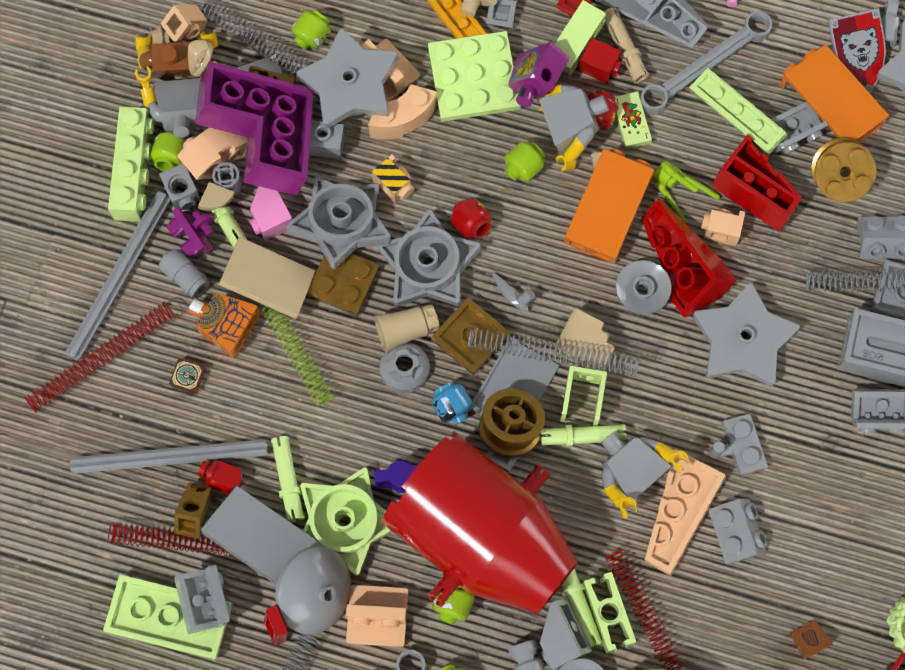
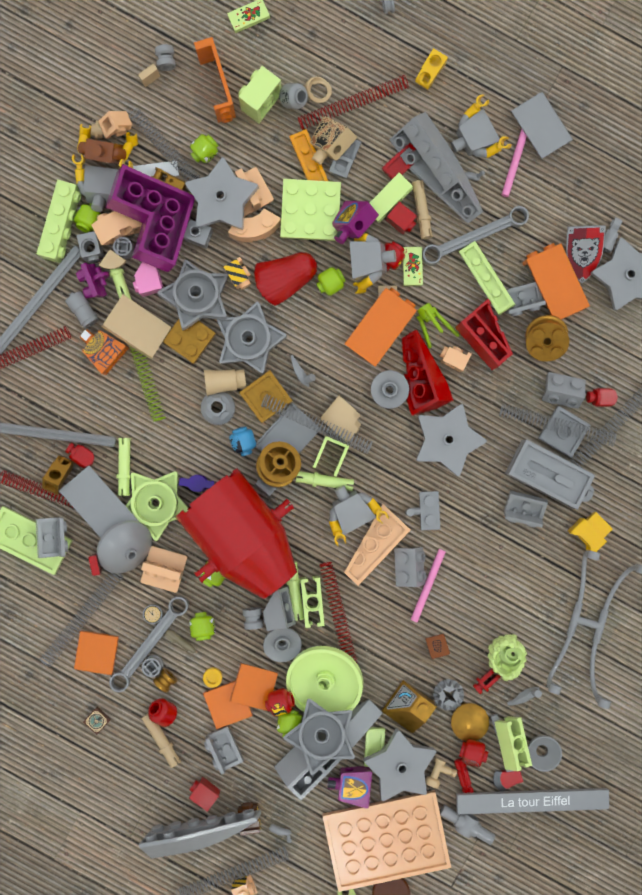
camera: 10 degrees right, 15 degrees up
(187, 376) = (71, 381): tile -> none
(198, 51) = (118, 153): tan piece -> none
(458, 169) = (284, 276): none -> red hair
(471, 218) = (285, 314): red head -> none
(772, 554) = (428, 585): none -> bright pink bar

